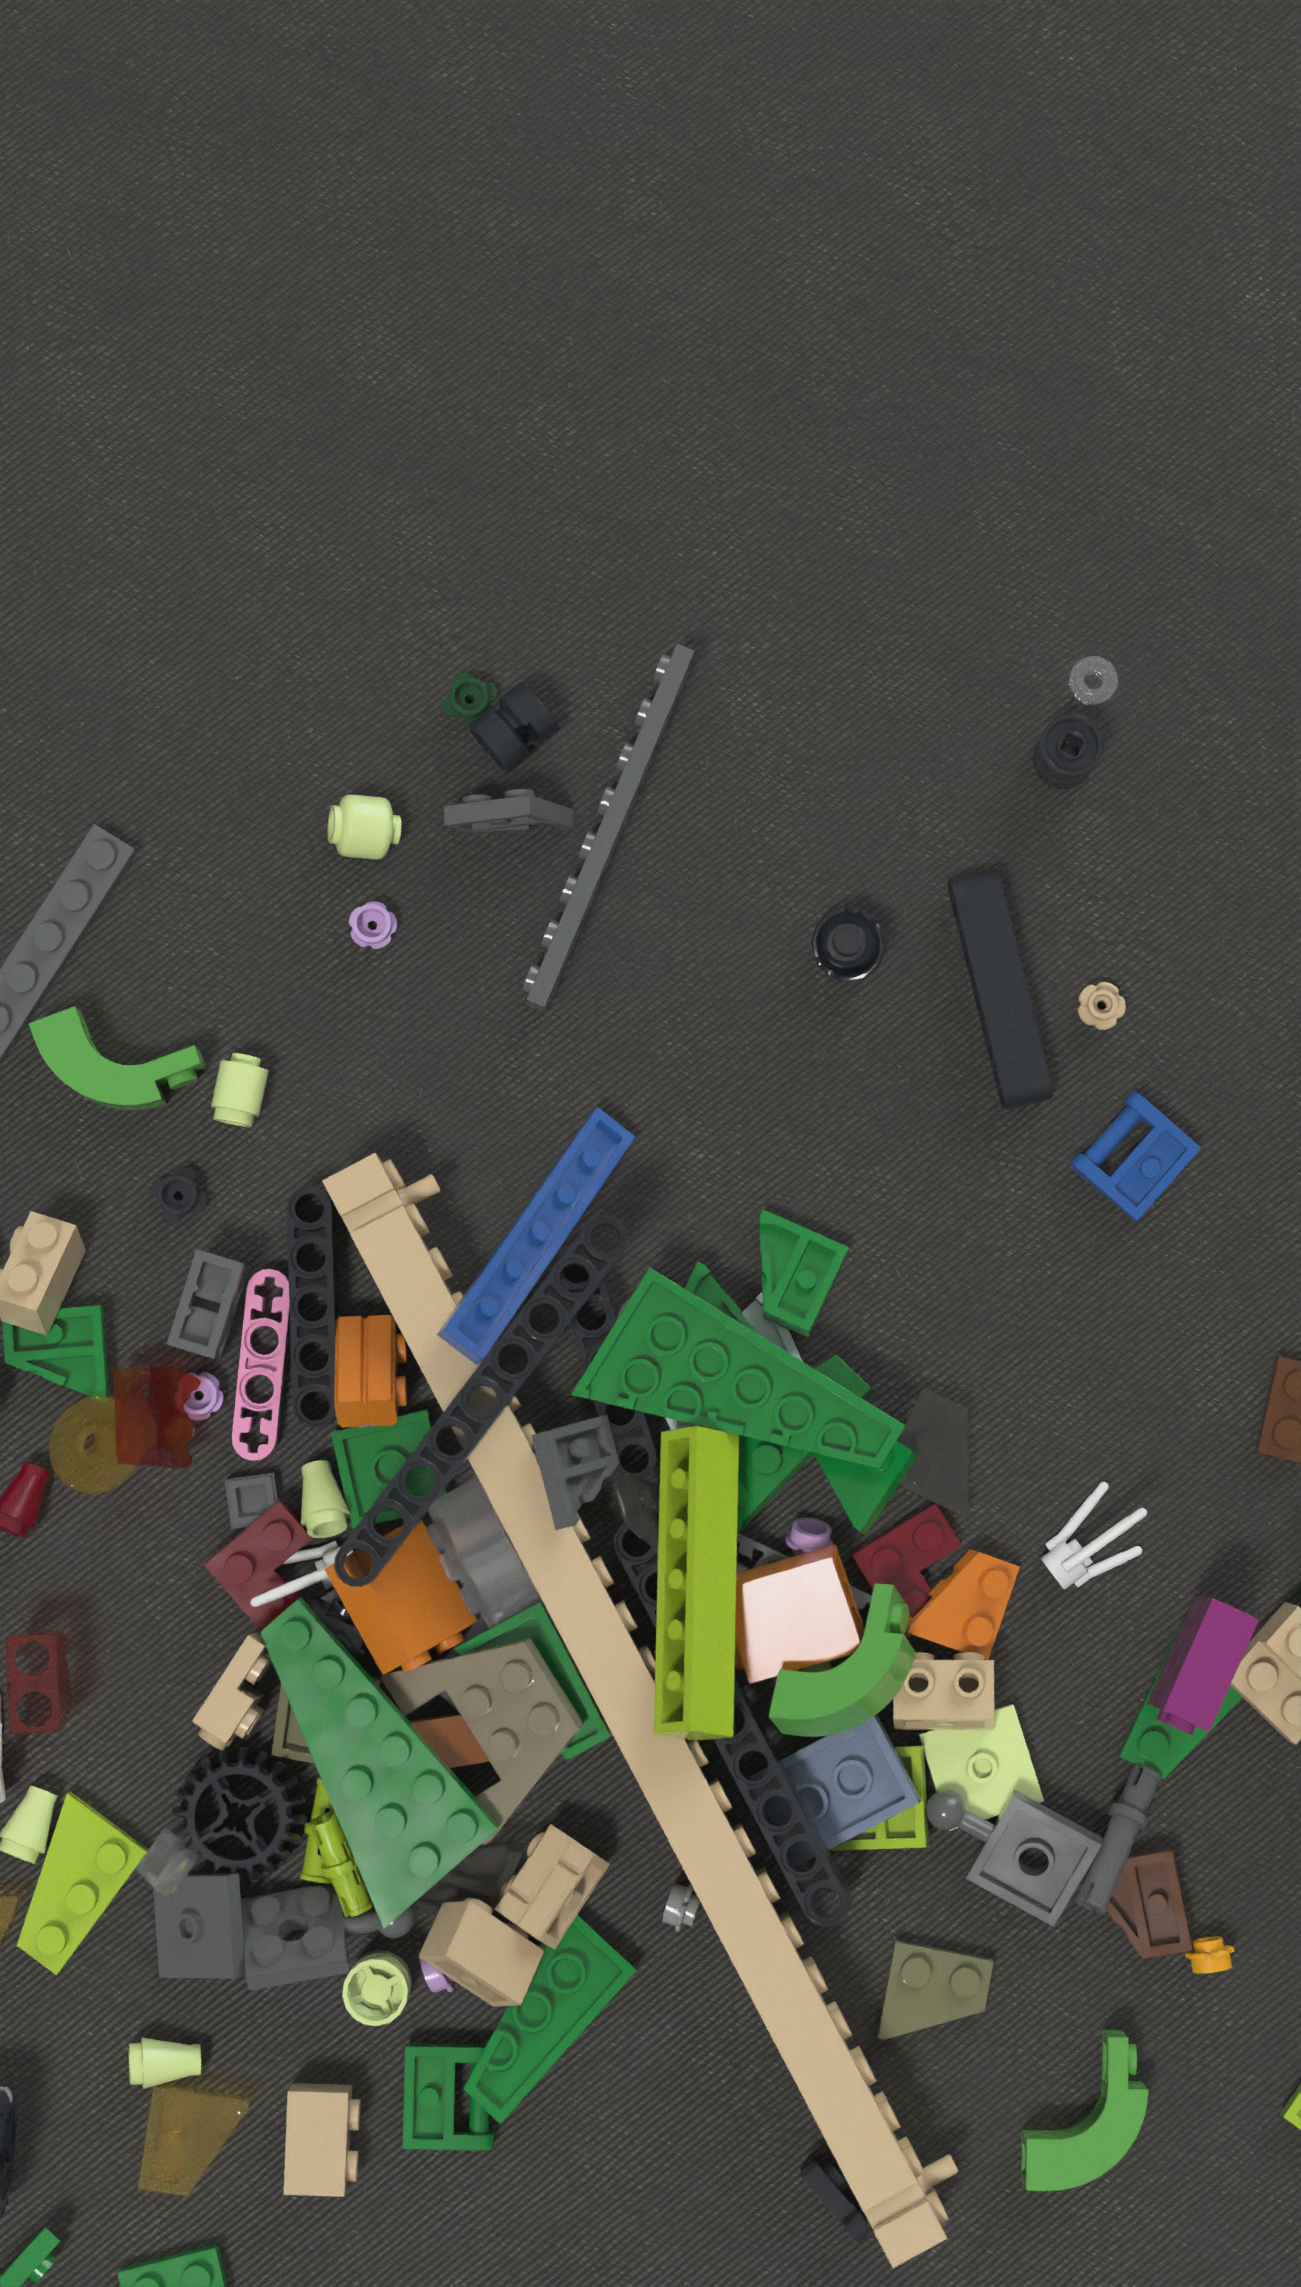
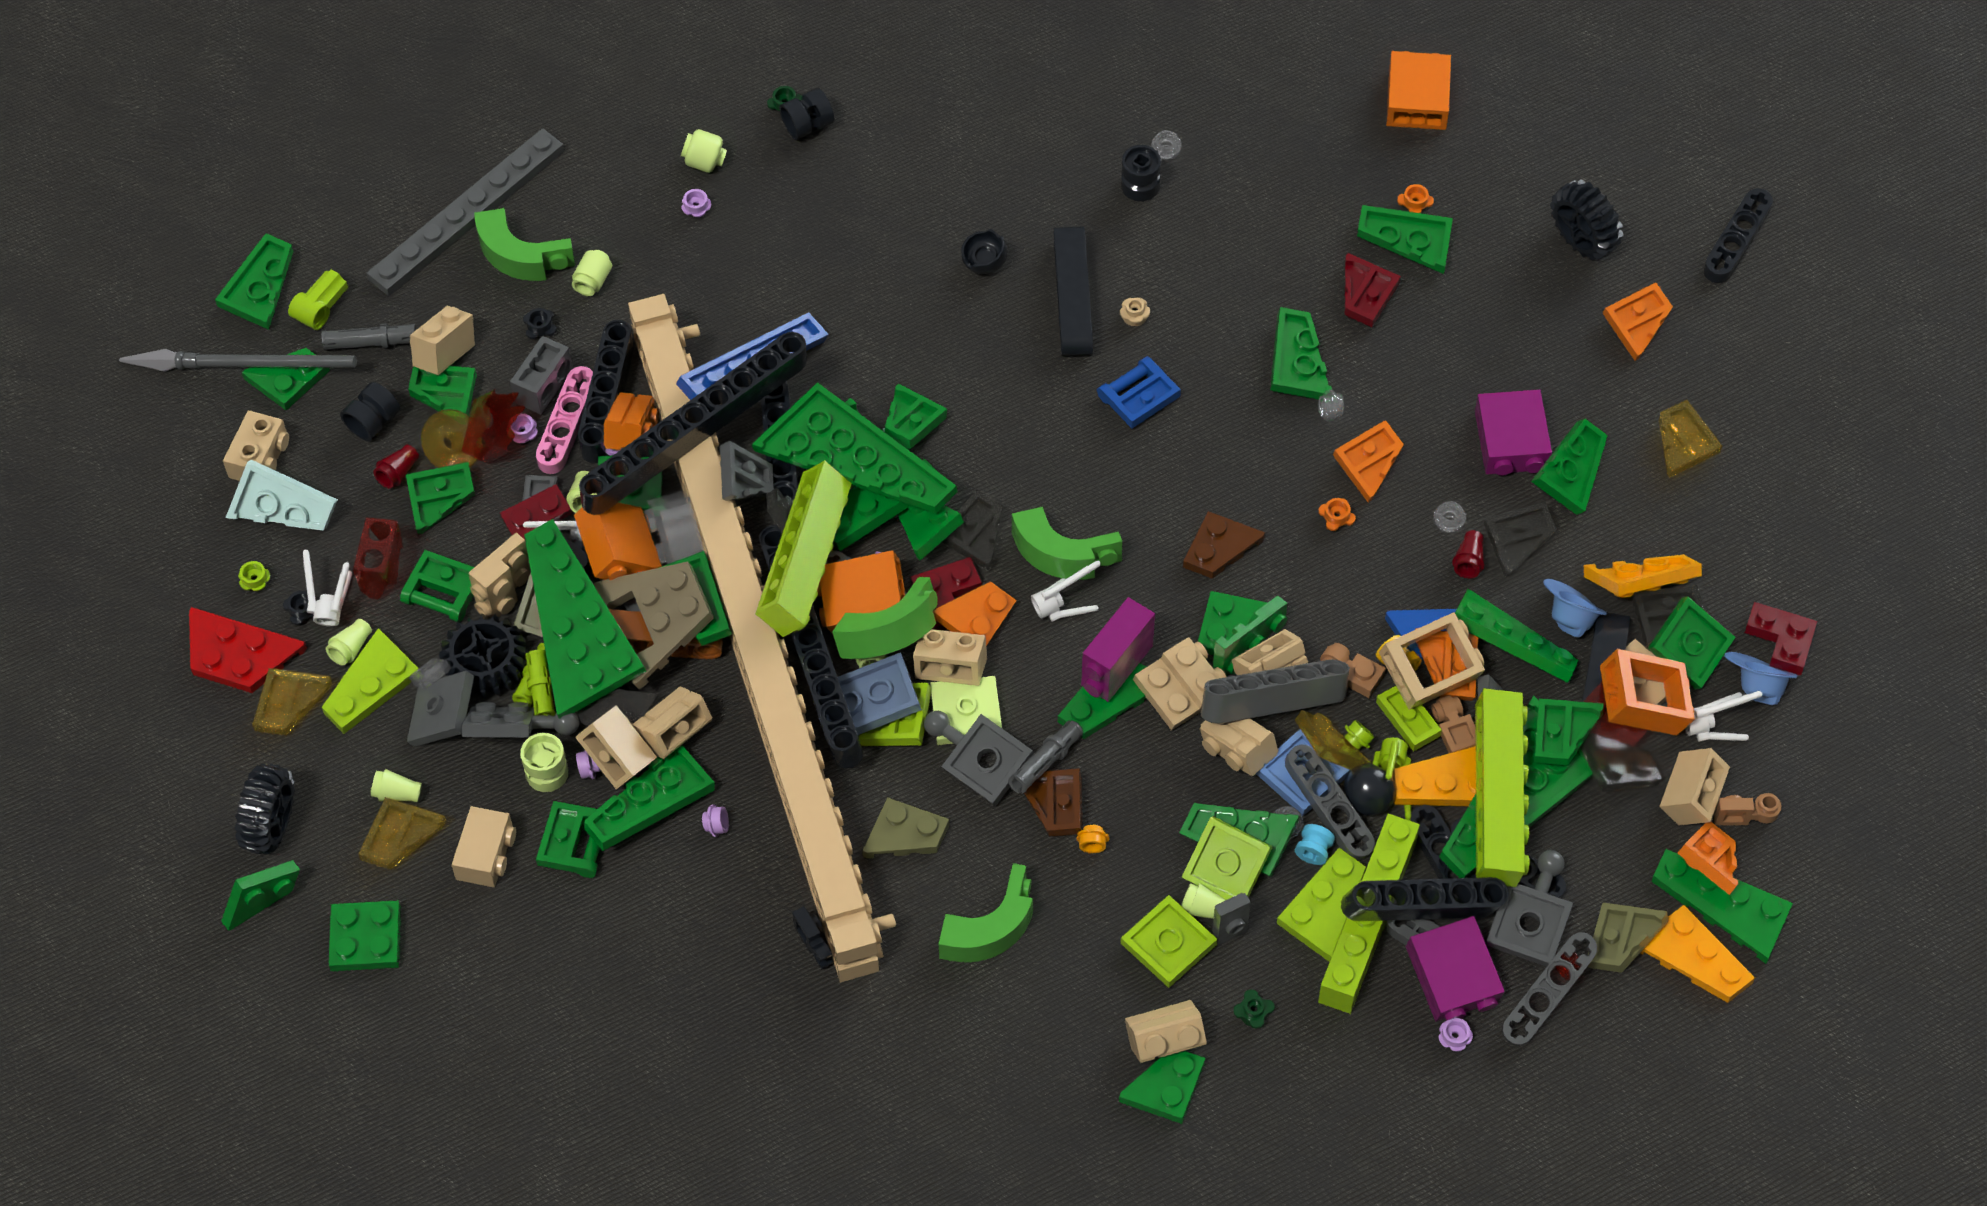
camera: 15 degrees right, 25 degrees down
(98, 1538) = (438, 493): none -> green wing
(148, 1685) = (443, 576): none -> green plate
(511, 813) = (792, 154): dark grey wing -> none
(600, 846) = (852, 175): dark grey plate -> none
(650, 2027) = (715, 820): none -> lavender plate
(681, 1907) = (752, 754): light grey plate -> none
(1064, 1484) = (1056, 553): none -> bright green arch

